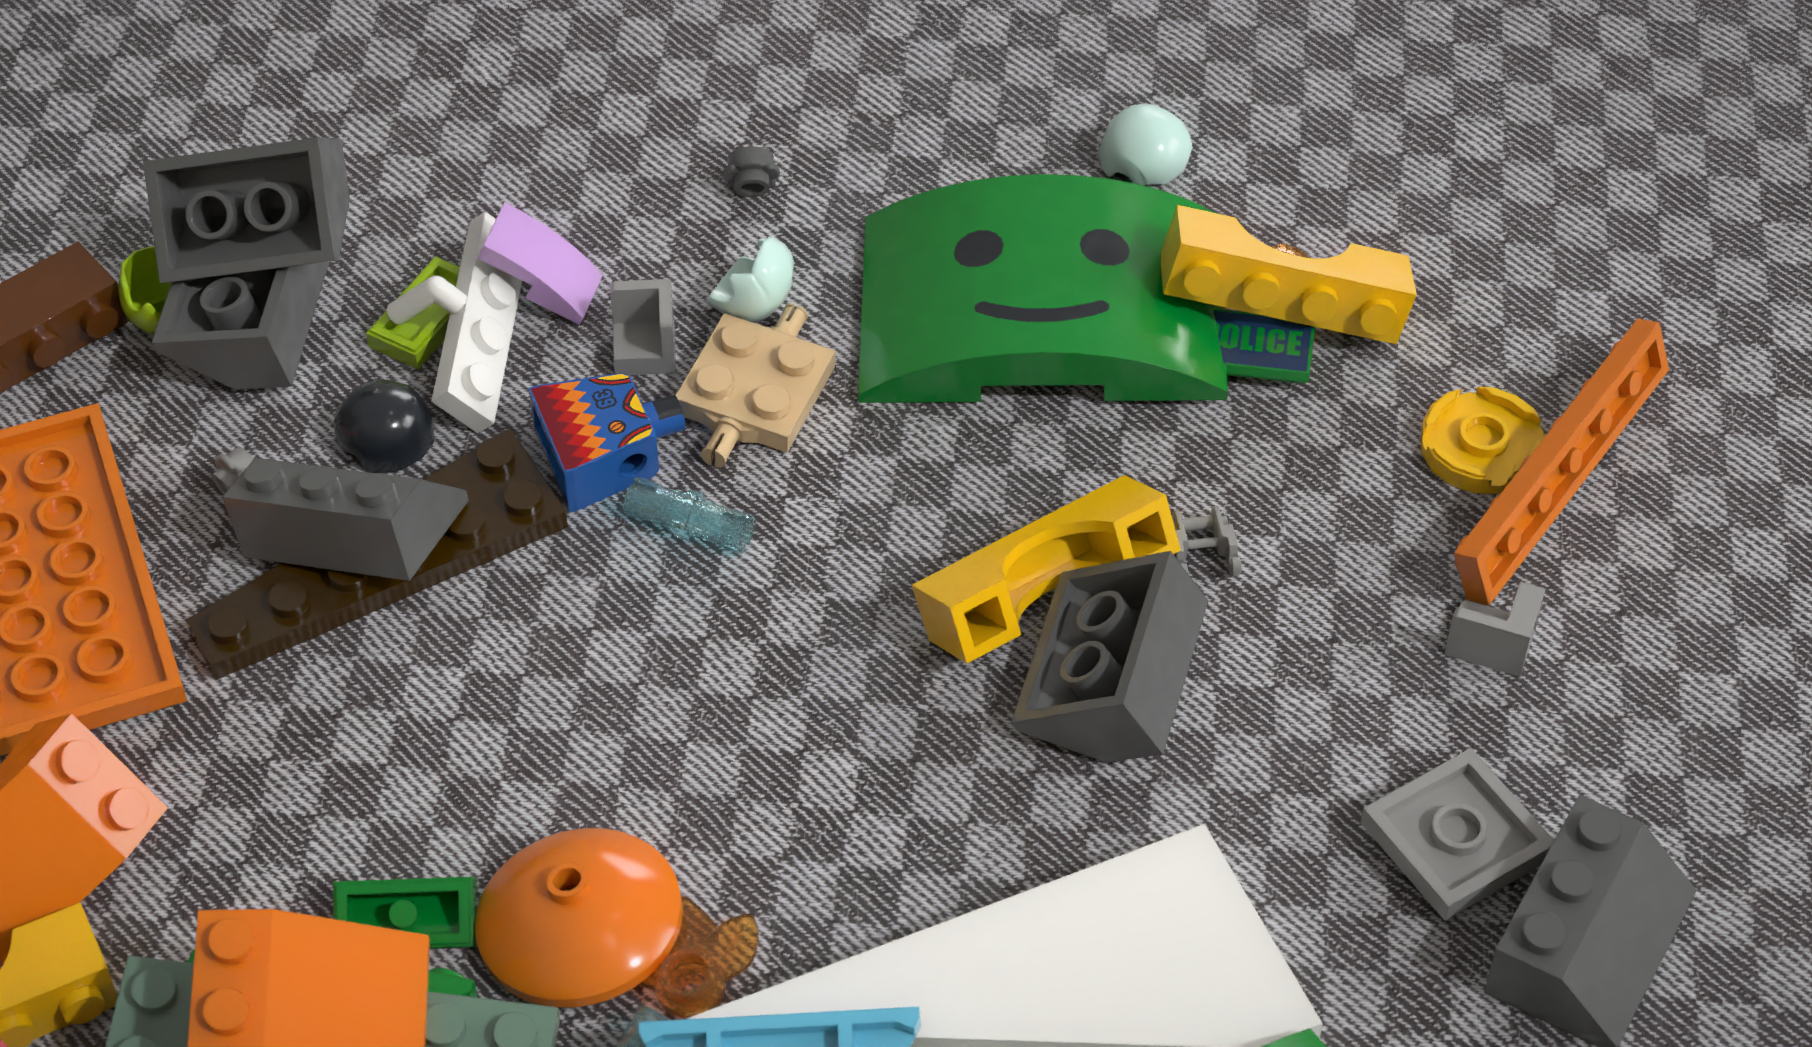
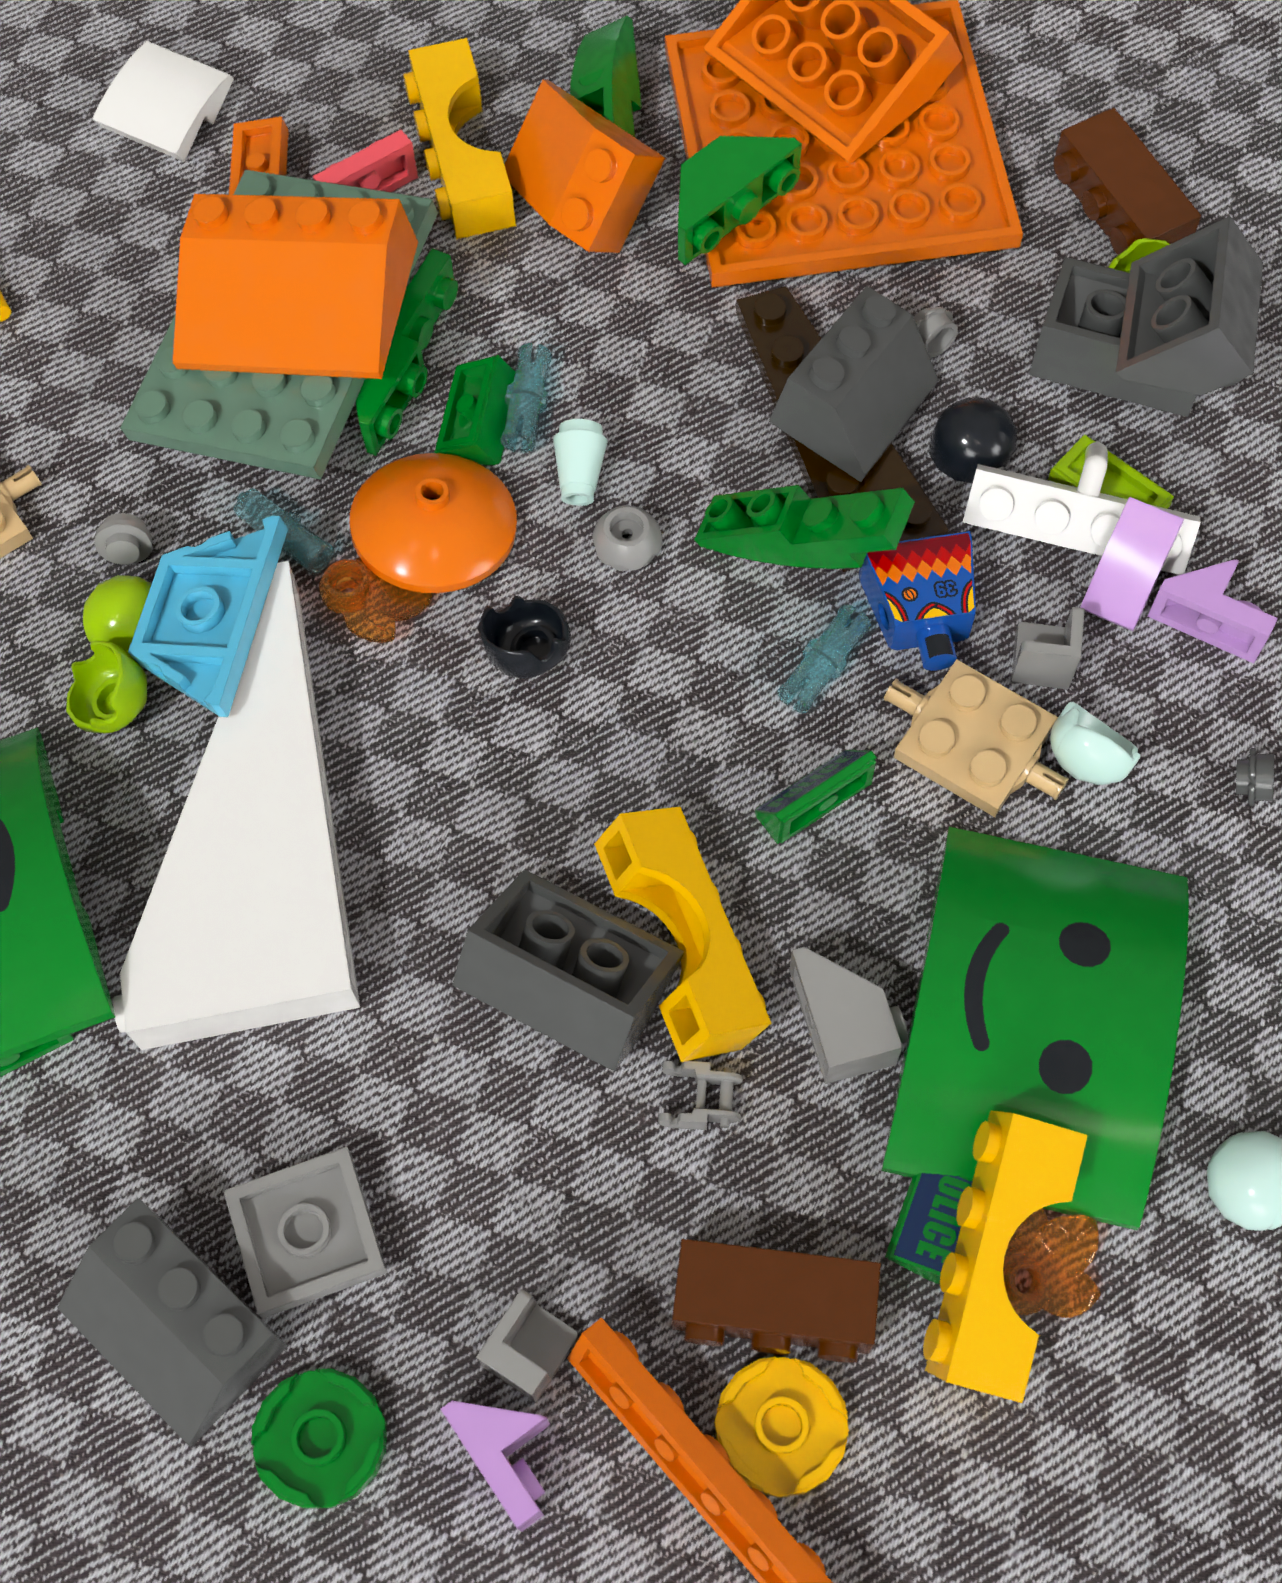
camera: 105 degrees right, 15 degrees up
(76, 669) = (730, 185): none -> green slope
(381, 855) = (526, 398): none -> clear light blue pin
(471, 778) = (579, 459): none -> light aqua cone
(546, 528) = (804, 532): none -> green slope
(571, 735) = (631, 552): none -> light grey plate
(579, 206) = (1200, 609): none -> lavender slope
(728, 775) = (525, 637): none -> black hair
(851, 496) = (816, 794): none -> green slope
(1095, 436) = (846, 1018): none -> light grey slope
(1380, 449) = (776, 1299): none -> reddish brown brick
(1595, 629) = (490, 1438): none -> lavender slope
(1646, 777) = (319, 1439): none -> green tile

